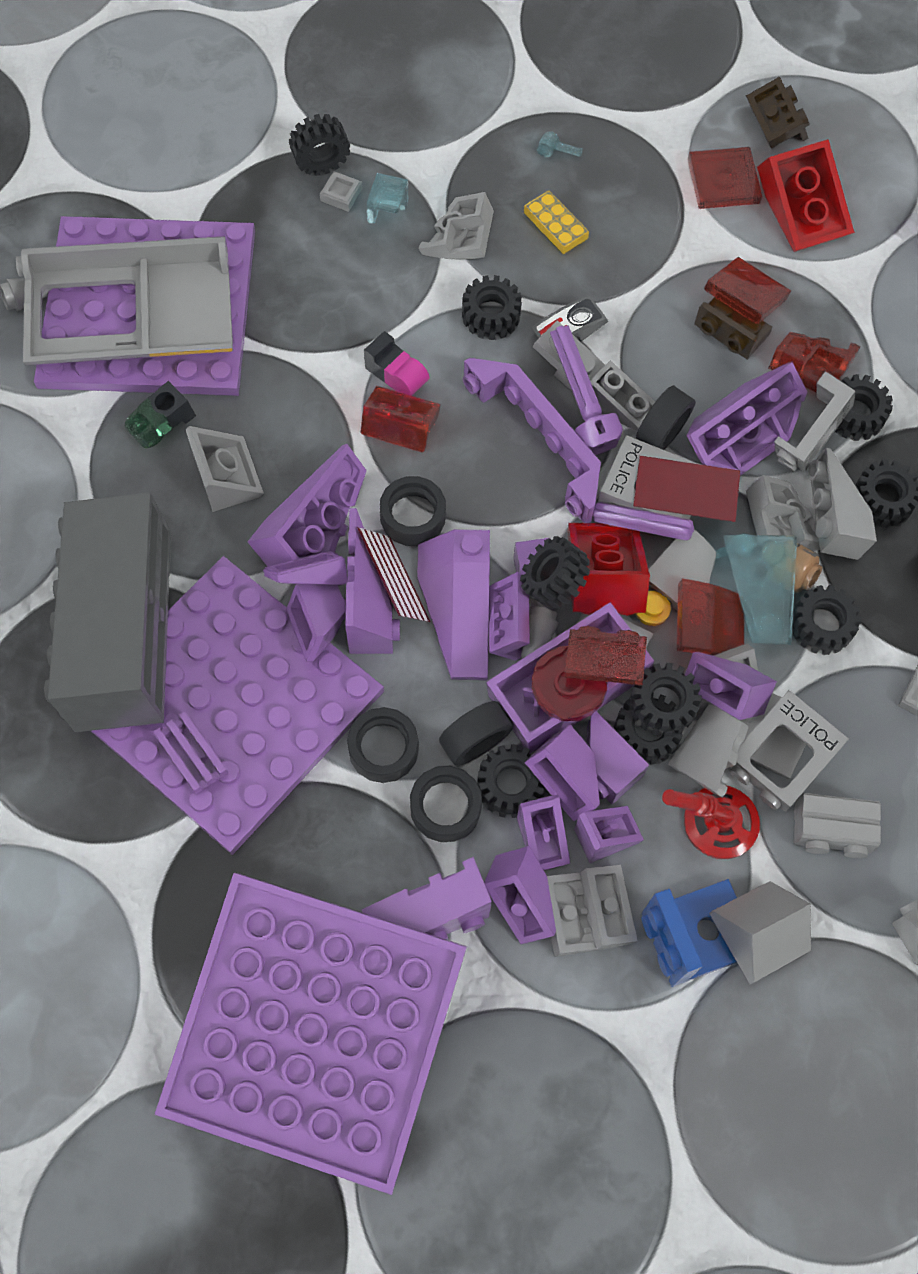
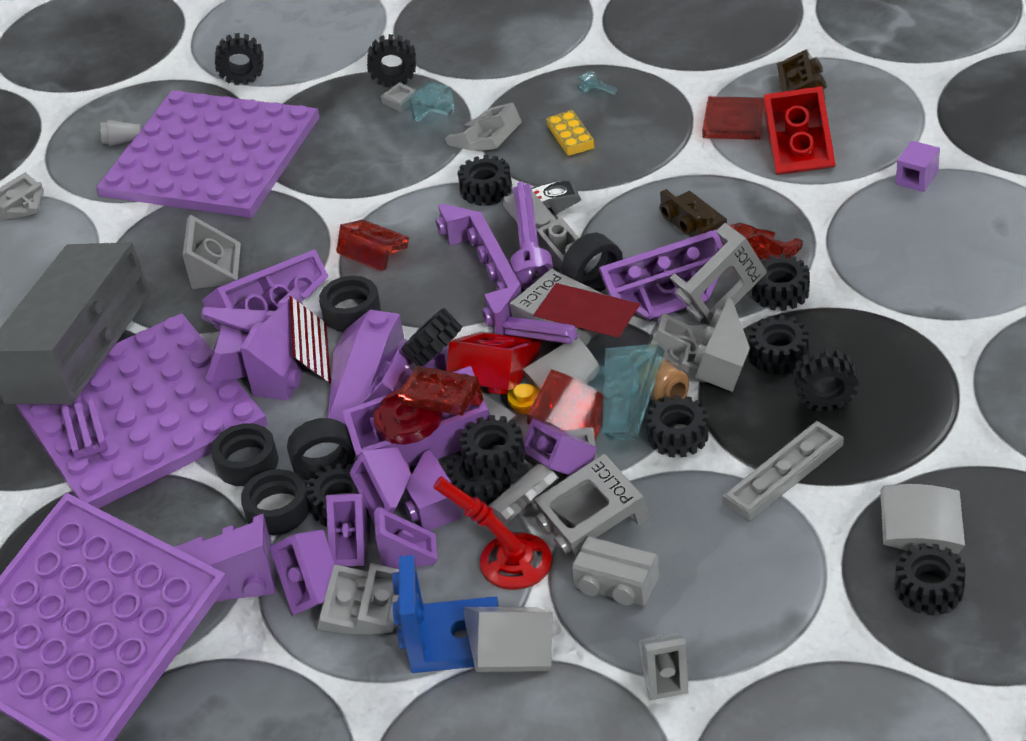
camera: 25 degrees right, 25 degrees down
(128, 150) = (239, 46): none -> black tyre
(158, 415) = (175, 216): leg -> none
(178, 292) = (231, 145): light grey piece -> none
(394, 365) = (382, 206): leg -> none
(747, 290) = (713, 190): clear red tile -> none

